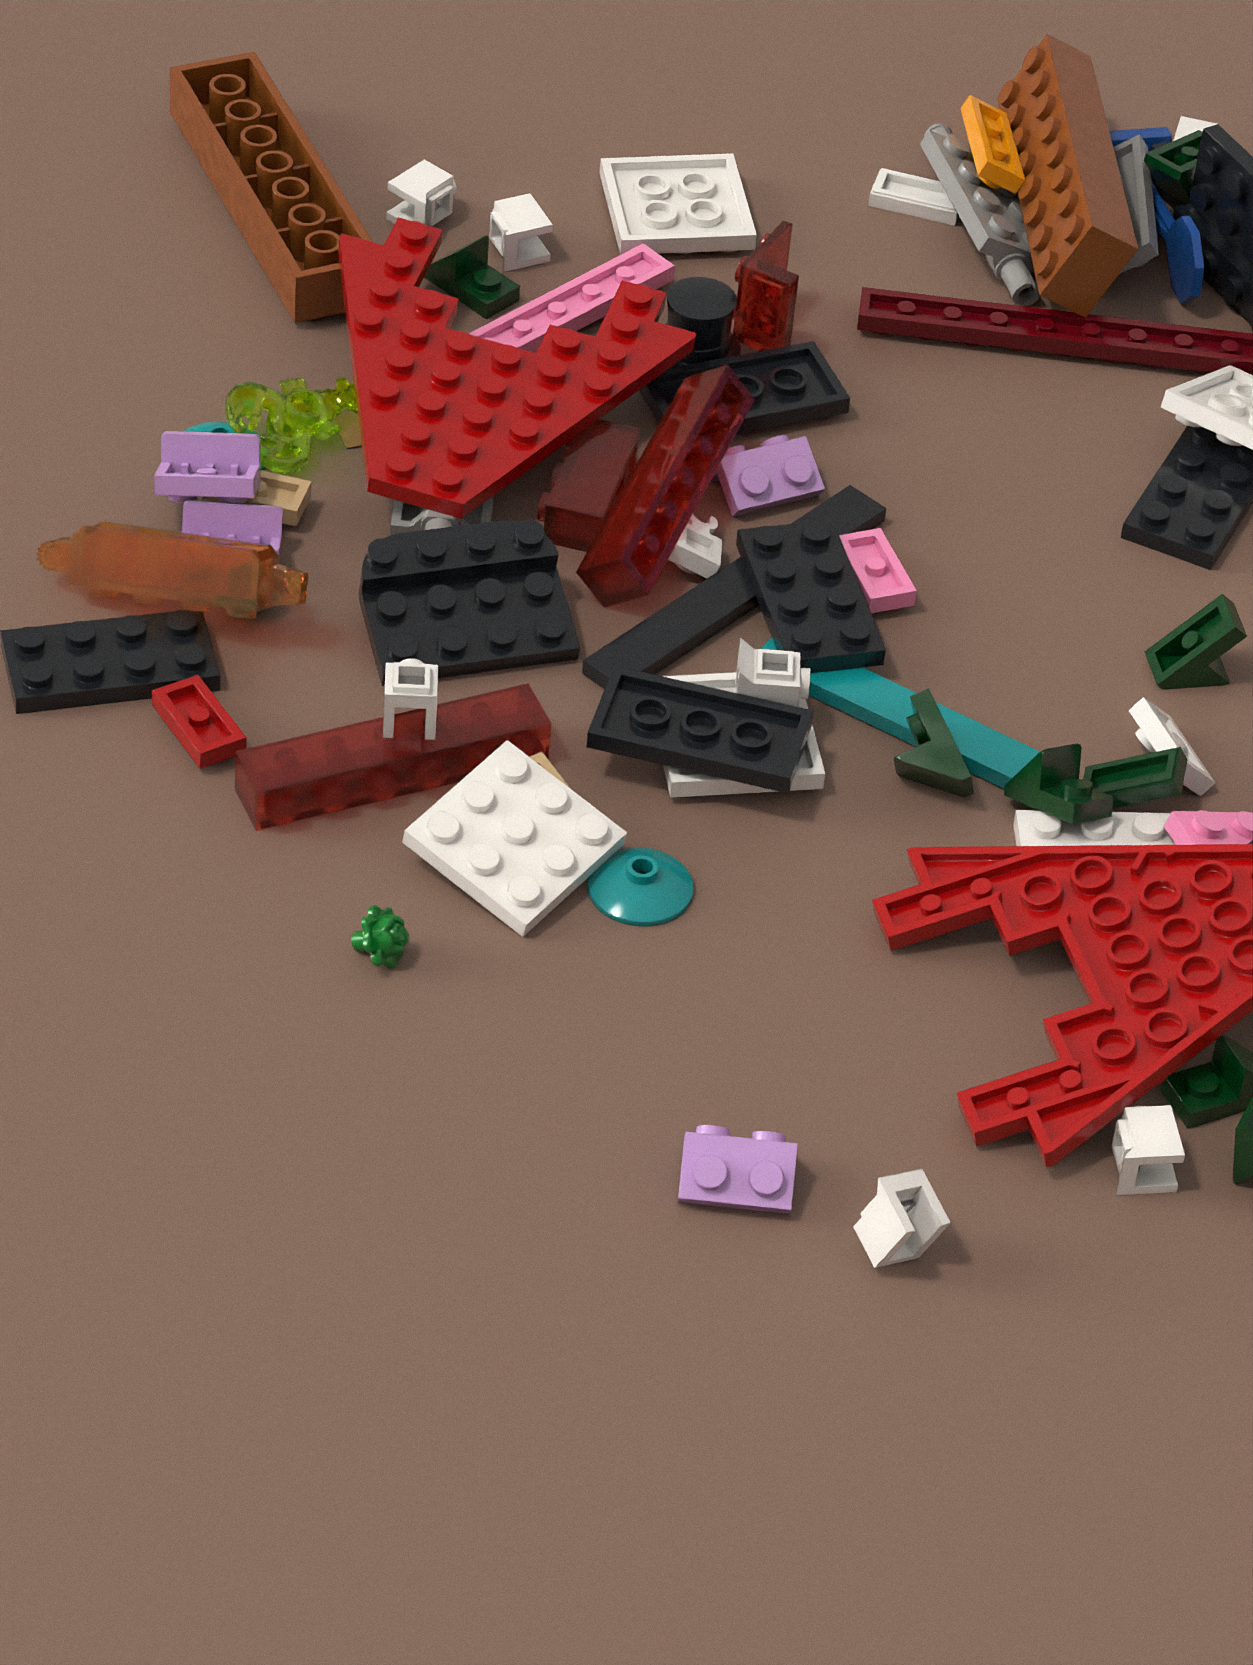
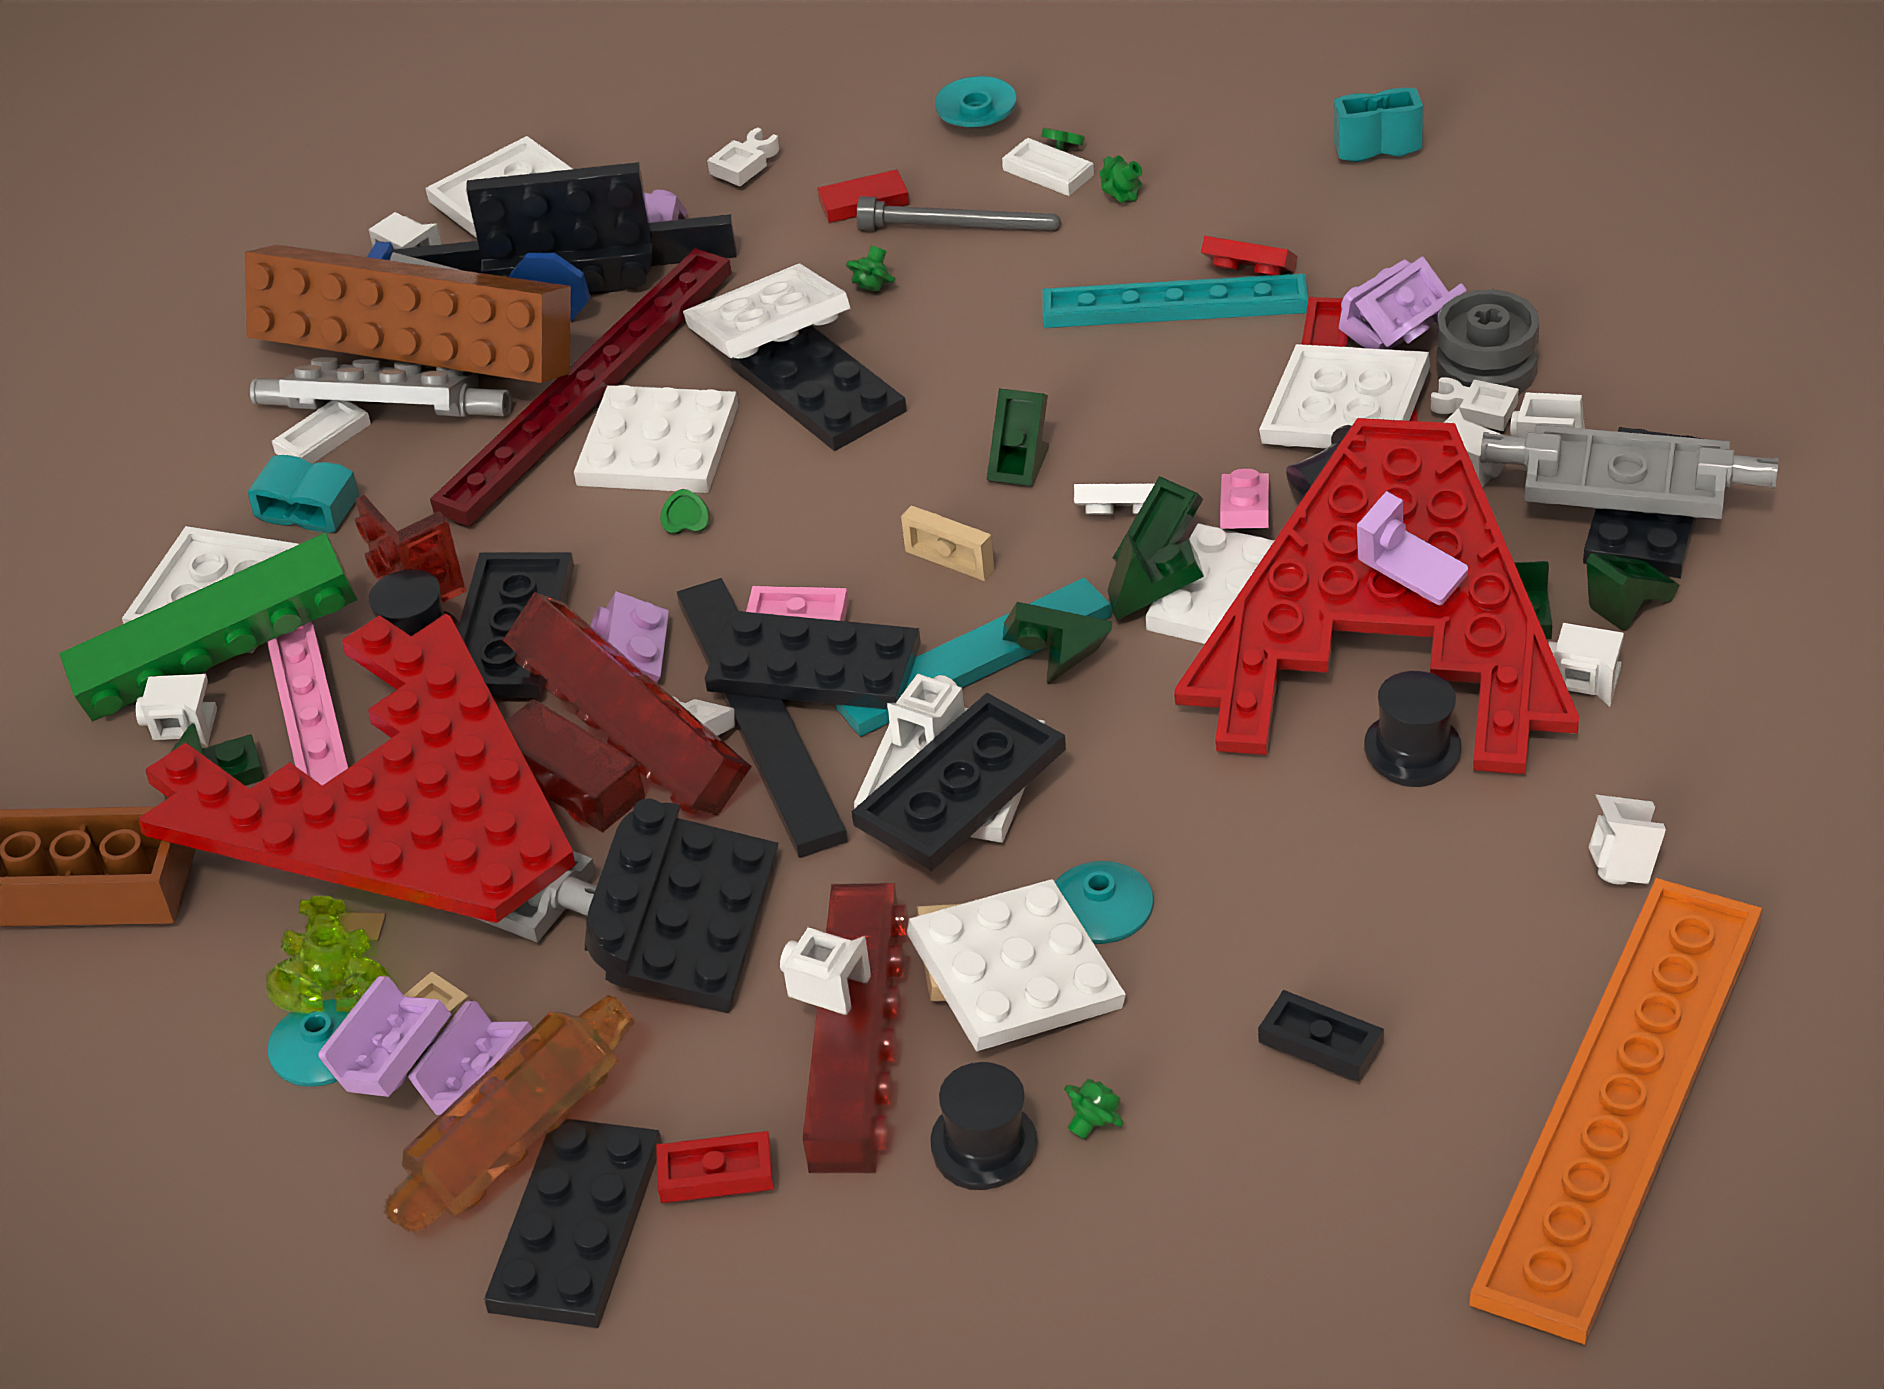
camera: 55 degrees left, 0 degrees up
(318, 868) = (982, 1129): none -> black piece
(426, 194) = (78, 767): white window -> none
(547, 1070) = (1321, 1035): none -> black plate
(582, 1301) = (1616, 1112): none -> orange plate
(610, 205) = (208, 626): none -> green brick
(737, 1170) = (1502, 936): lavender bracket -> none
(824, 210) = (303, 493): none -> teal brick
(958, 458) = (685, 511): none -> green piece
(966, 1036) = (1414, 732): none -> black piece
(992, 145) = (329, 348): light orange plate -> none
(1026, 656) = (948, 543): none -> tan plate
(1051, 411) = (656, 439): none -> white plate
(1152, 932) = (1403, 556): none -> lavender bracket
(1175, 165) = (449, 237): dark green slope -> none

